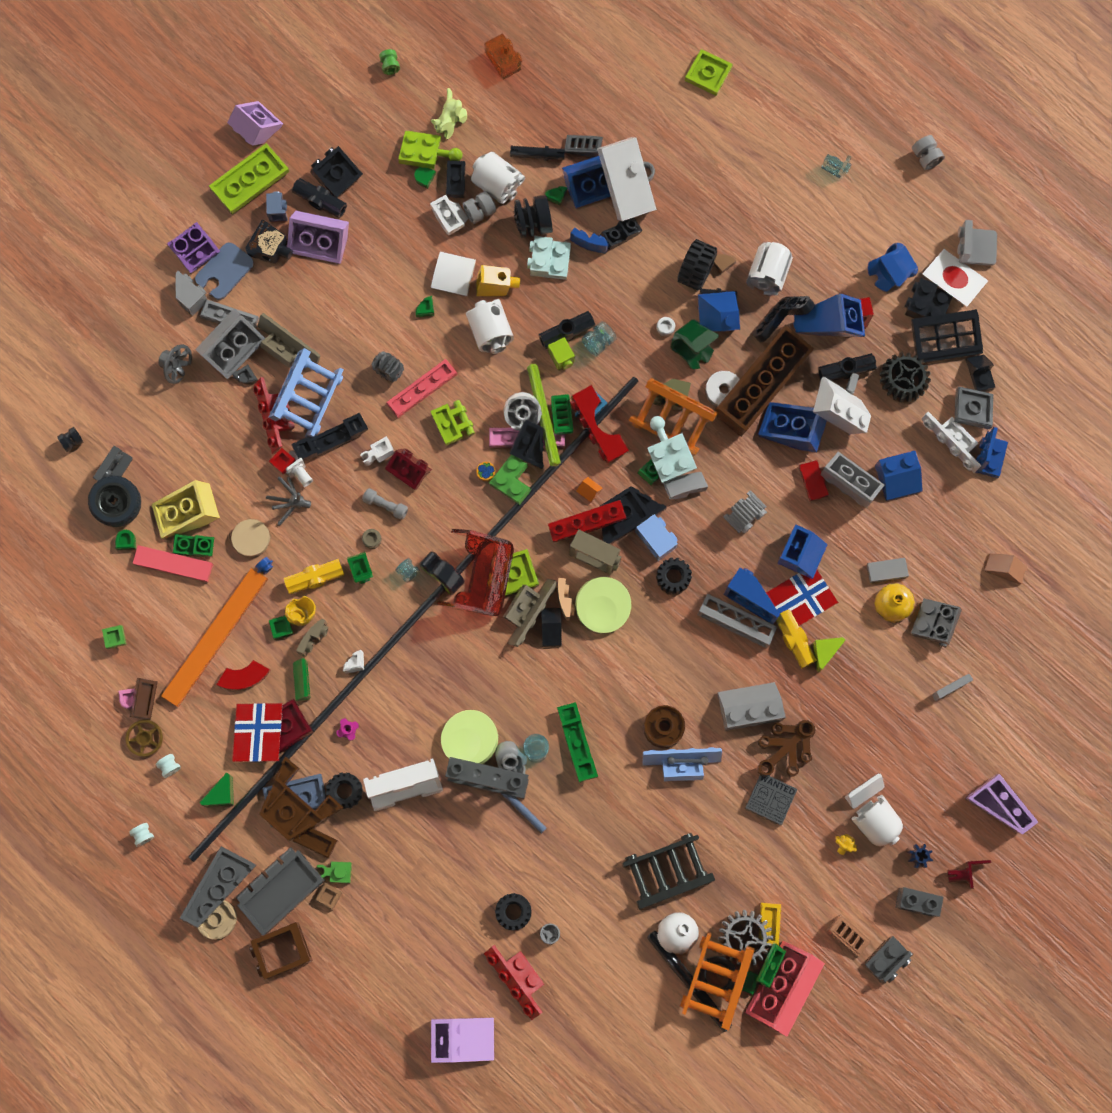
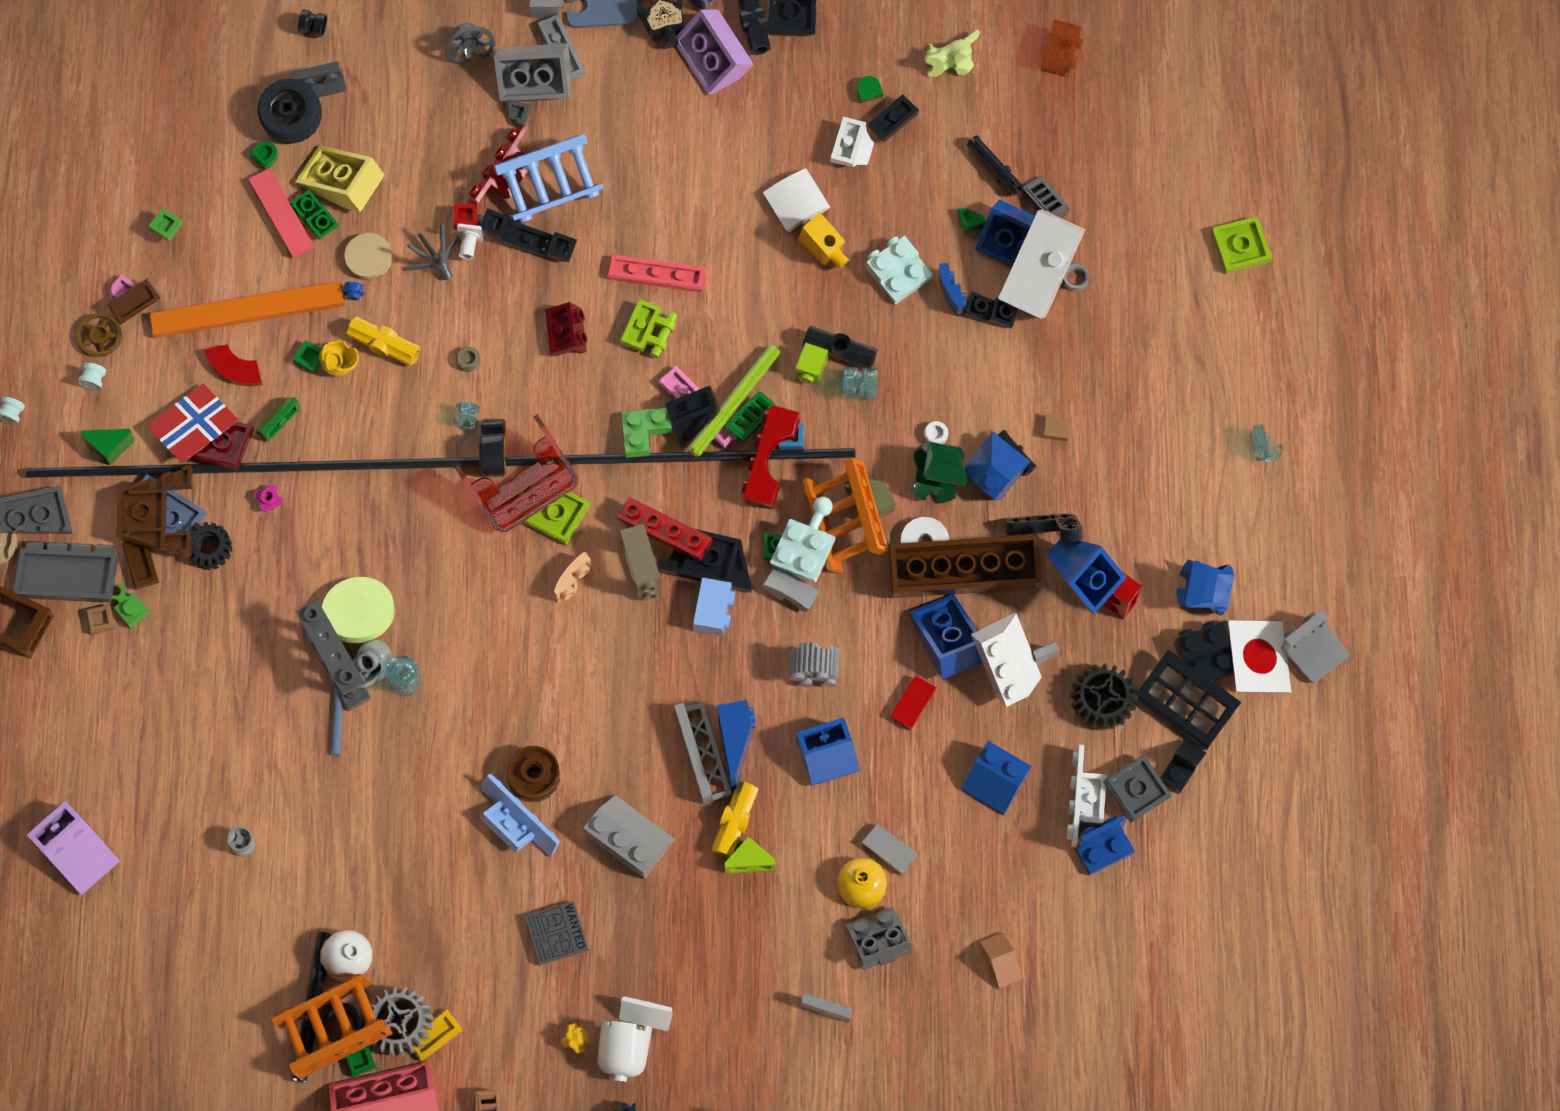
camera: 50 degrees right, 5 degrees down
(282, 343) = (577, 117): dark tan bracket -> none
(316, 632) = (334, 390): dark tan slope -> none
(355, 663) = (337, 449): white tile -> none
(360, 568) = (429, 373): green bracket -> none
(380, 450) = (558, 291): white plate -> none
(387, 366) = (644, 223): dark grey gear -> none
(399, 510) = (517, 358): light grey piece -> none
(403, 784) = (259, 588): white piece -> none
(422, 150) = (894, 63): lime plate -> none
(425, 308) = (739, 206): green tile -> none
(485, 205) = (892, 166): light grey wheel -> none
(485, 471) = (630, 400): tile -> none
(490, 326) = (772, 276): white cylinder -> none
(496, 177) = (928, 150): white cylinder -> none
(501, 907) = (226, 778): black tyre -> none
(518, 977) = (177, 849): red bracket -> none
(521, 407) = (718, 372): white cylinder -> none
(526, 608) = (528, 550): dark tan bracket -> none
(533, 216) = (916, 214): black wheel -> none
(551, 627) = (534, 590): black slope -> none
(577, 742) = (446, 708): green slope -> none
(589, 489) = (703, 506): orange slope -> none
(603, 604) = (599, 615): yellowish green piece -> none
(664, 890) = (397, 922): pearl dark grey fence -> none
(666, 584) = (683, 643): black tyre -> none
(697, 264) = (1020, 403): black tyre -> none
(704, 760) = (533, 837): dark grey hinge -> none
(770, 268) = (1087, 473): white cylinder -> none
(771, 966) = (392, 1065): green slope -> none
(788, 746) = (621, 904): reddish brown plant -> none
(803, 597) = (786, 794): sticker -> none
(852, 480) = (944, 733): light grey slope -> none
(858, 365) = (1072, 643): black piece -> none
(928, 153) = (1366, 517): light grey wheel -> none

